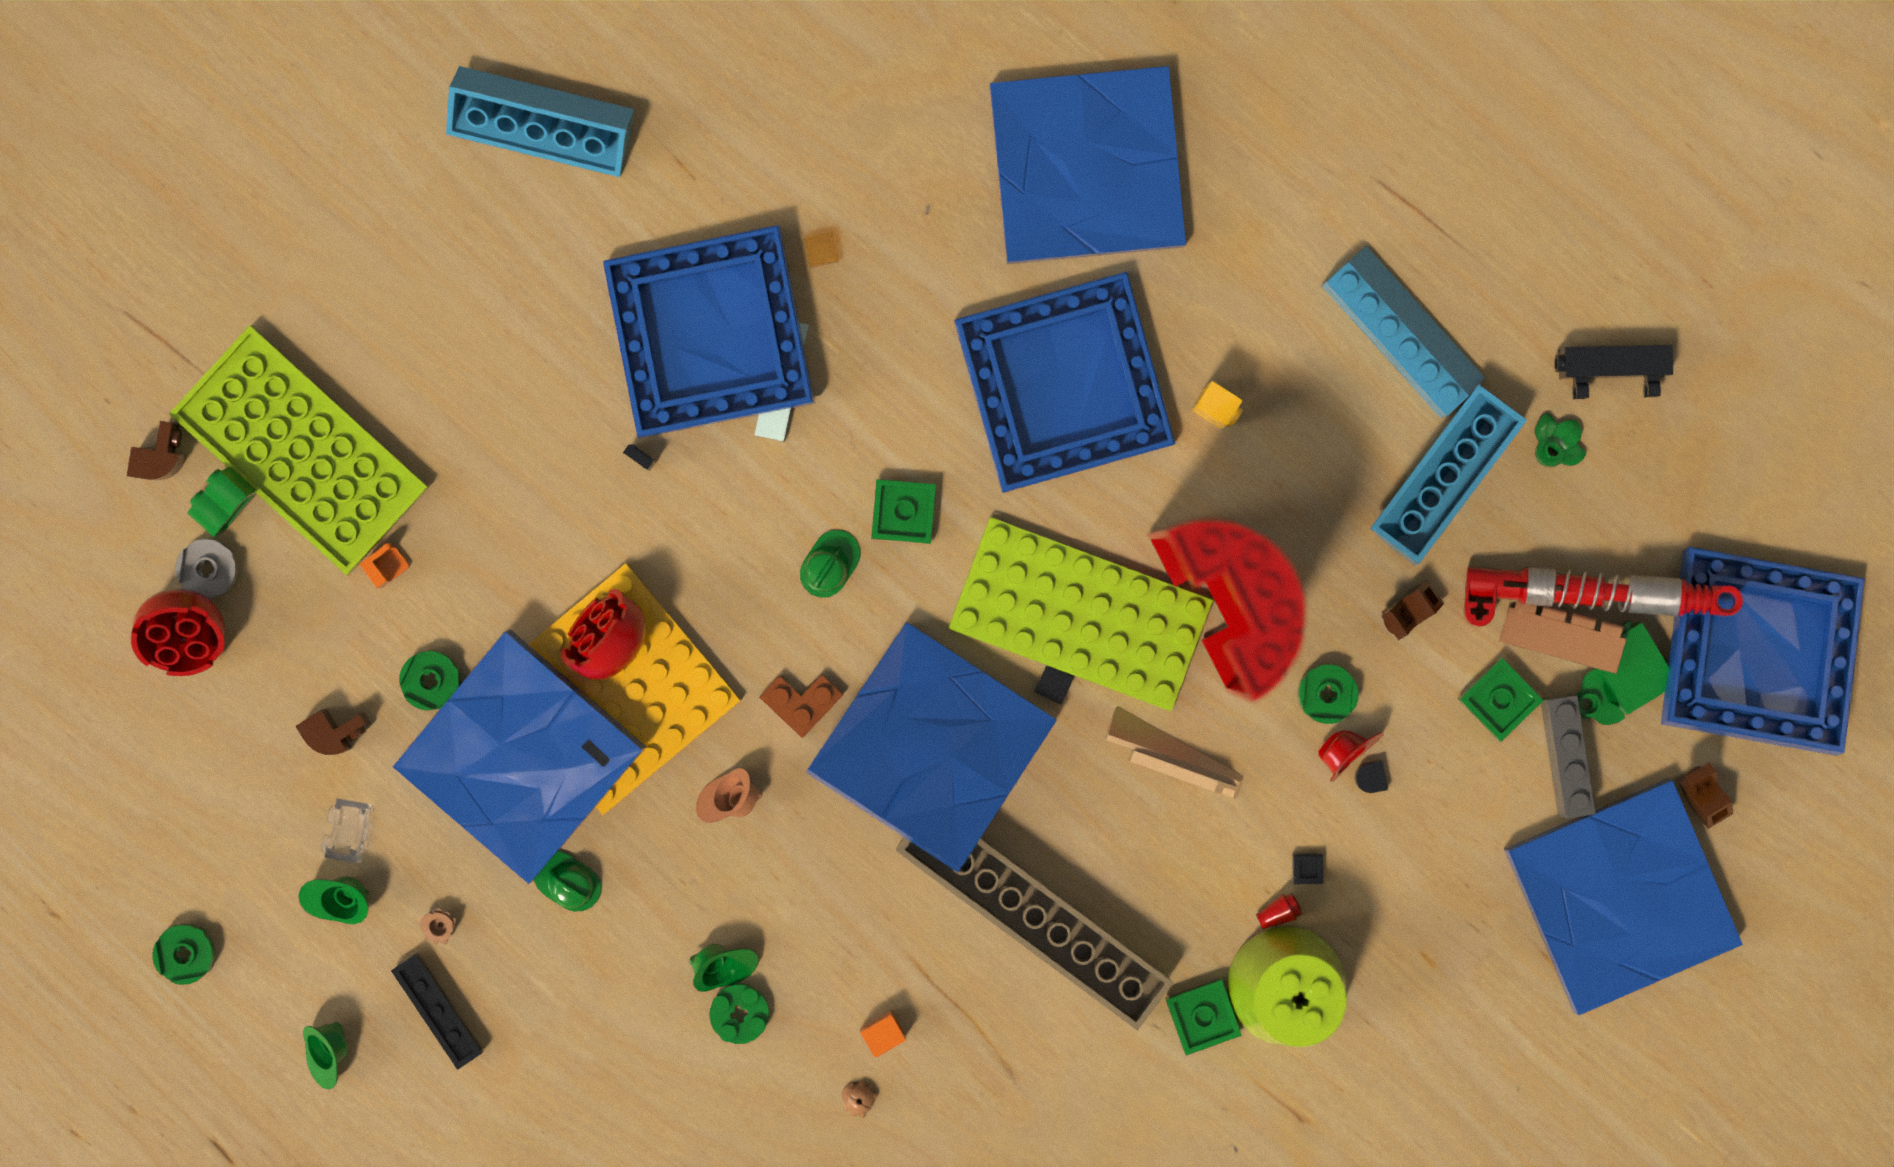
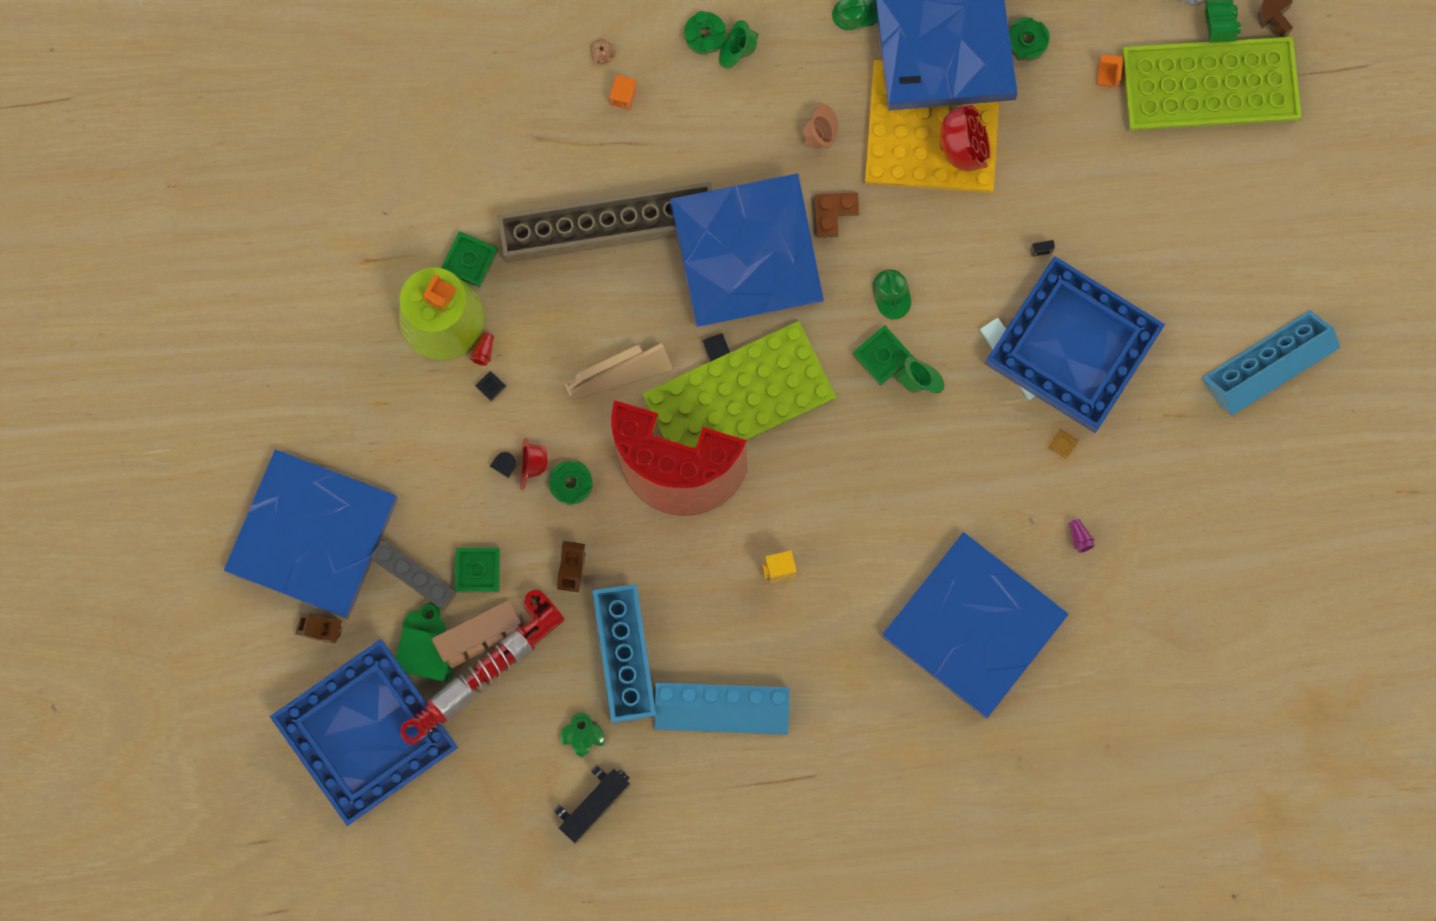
camera: 135 degrees right, 10 degrees down
(890, 451) = (920, 376): none -> green piece
(899, 144) = (1081, 537): none -> magenta cone
(1064, 382) = (869, 502): blue tile -> none
(1292, 998) = (439, 293): none -> orange panel

